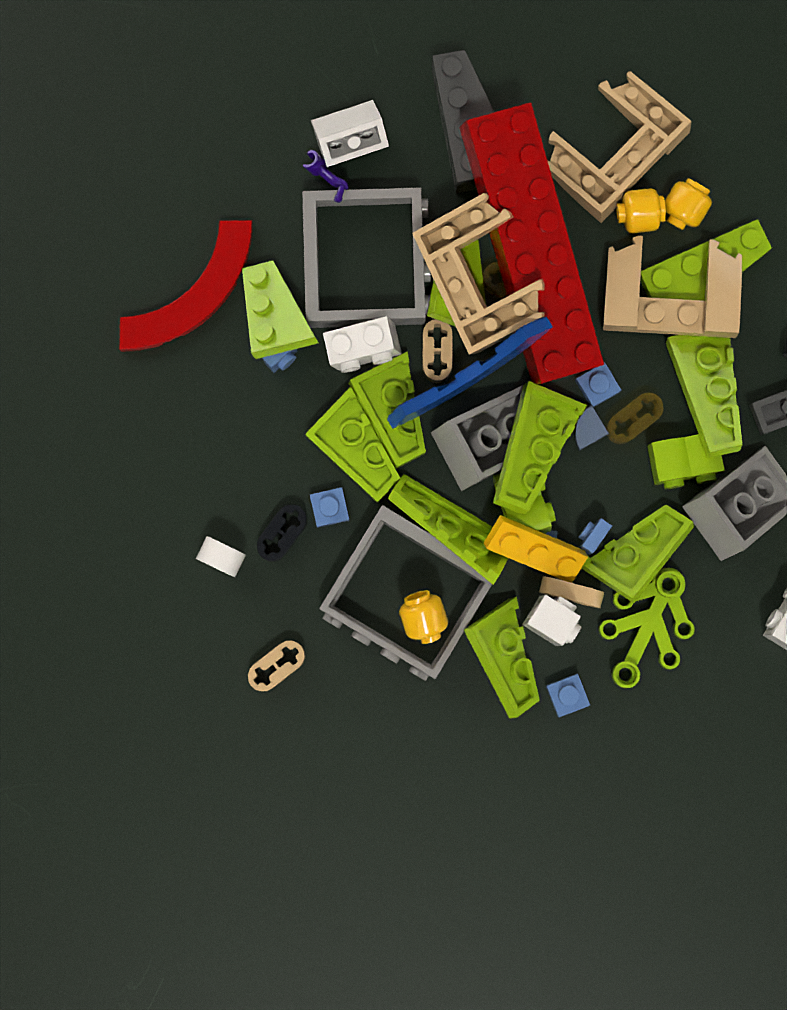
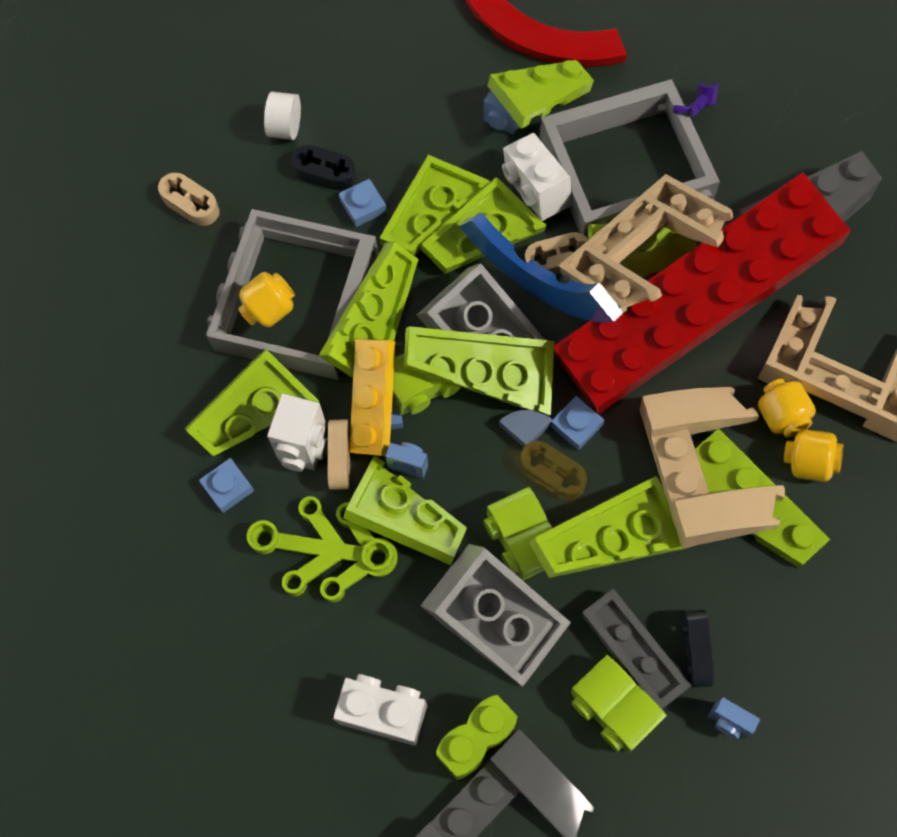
camera: 75 degrees right, 15 degrees down
(350, 133) = (748, 107): white brick -> none

